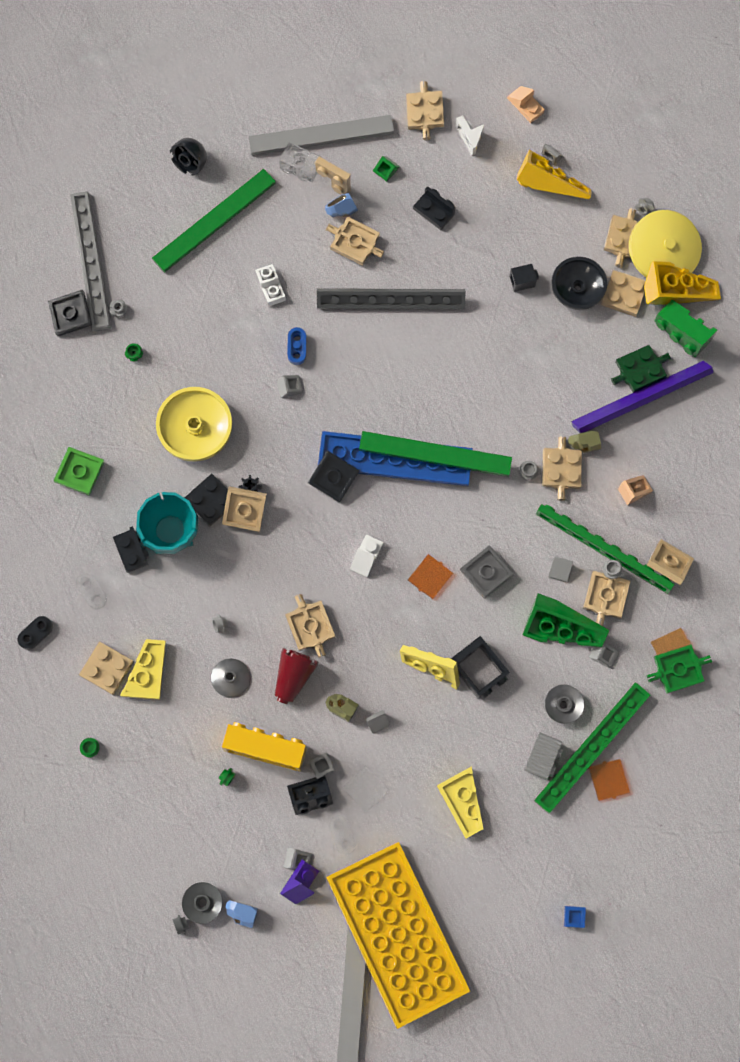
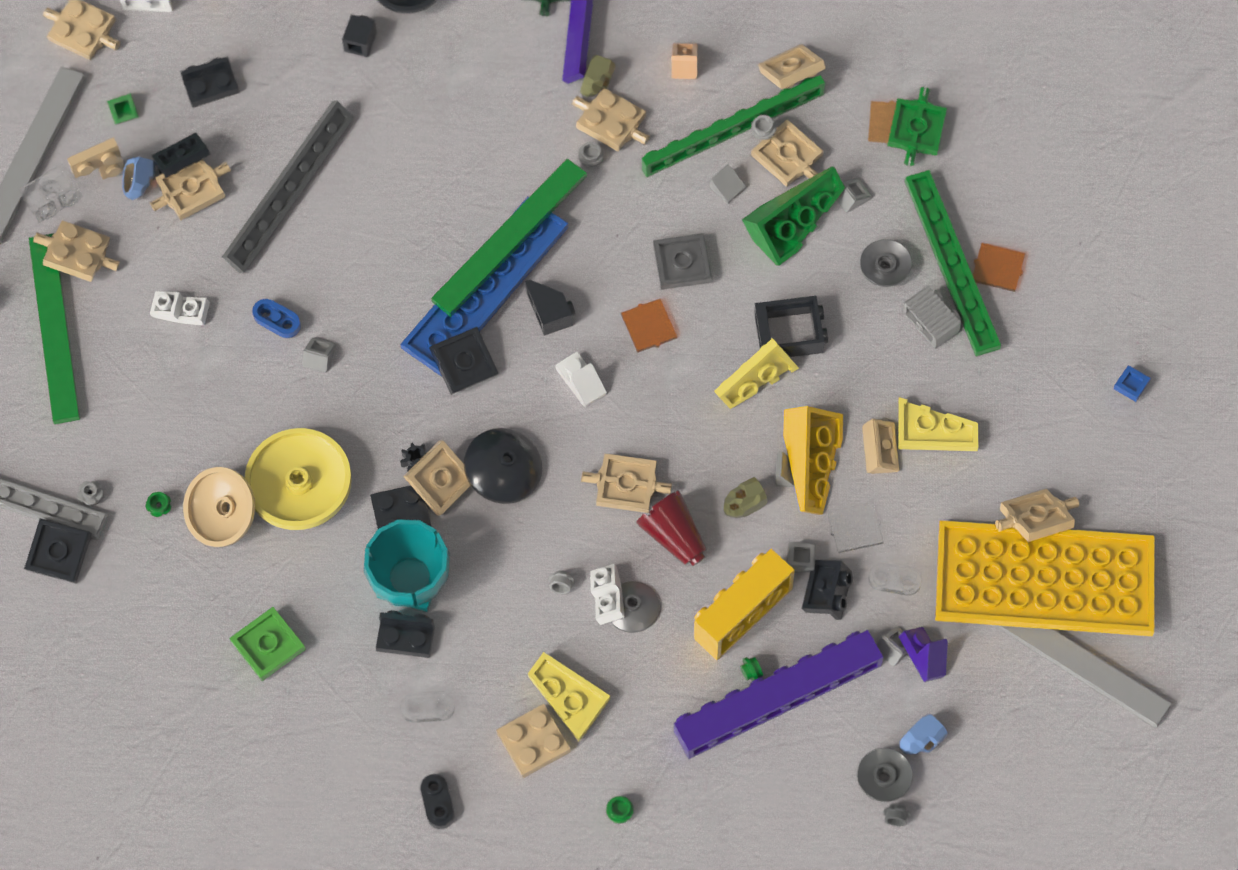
camera: 55 degrees left, 10 degrees down
(147, 388) = (207, 506): none -> tan dish
(219, 803) = (777, 694): none -> dark purple brick
(231, 655) = (607, 593): none -> white slope
(263, 547) = (496, 478): none -> black dish
(270, 201) = (76, 251): none -> tan plate
(370, 221) = (180, 155): none -> black bracket
(402, 508) = (549, 307): none -> black slope
(402, 729) = (811, 444): none -> yellow wedge
(431, 773) = (880, 446): none -> tan slope
(438, 905) = (1037, 514): none -> tan plate

